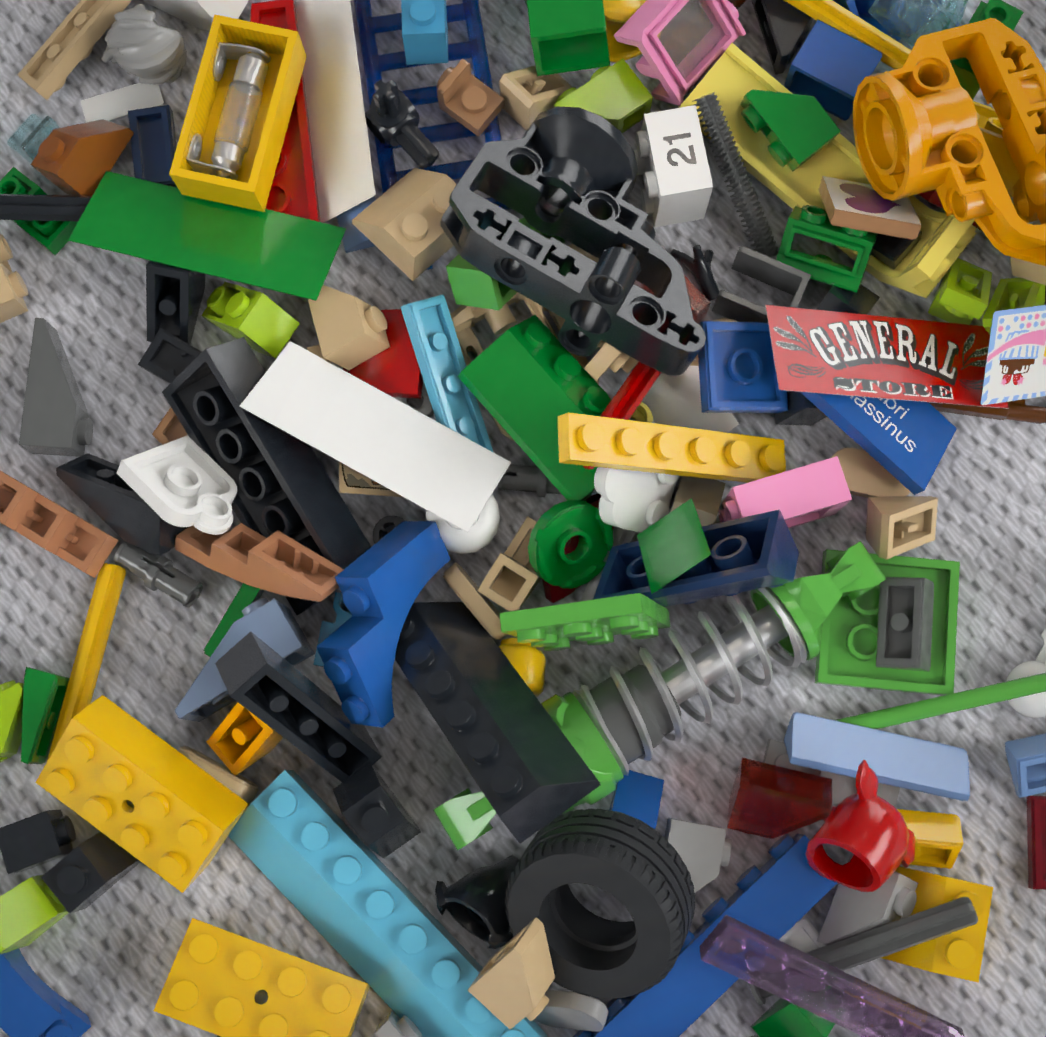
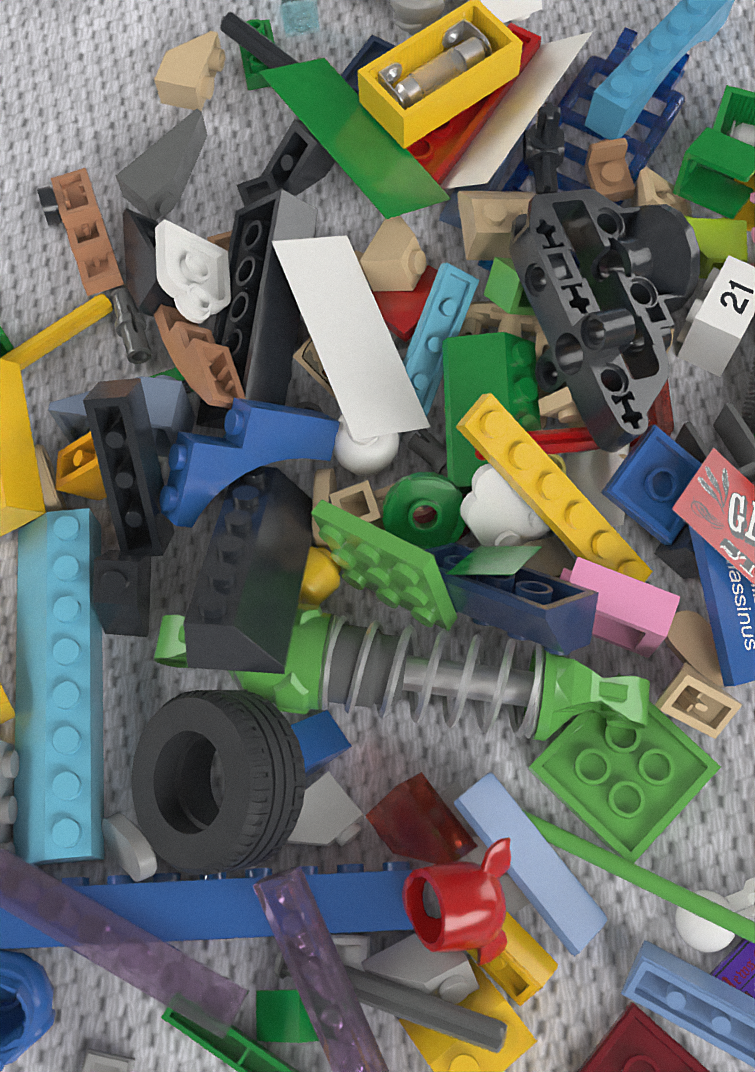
camera: 40 degrees right, 10 degrees down
(81, 154) = (314, 35): dark orange slope -> none
(120, 101) = (365, 28): white sticker -> none
(252, 316) = (337, 208): lime slope -> none
(479, 902) = (132, 711): black hat -> none
(517, 977) = (111, 781): tan slope -> none
(701, 270) = (687, 404): black bar -> none
(905, 623) = (637, 777): dark grey slope -> none

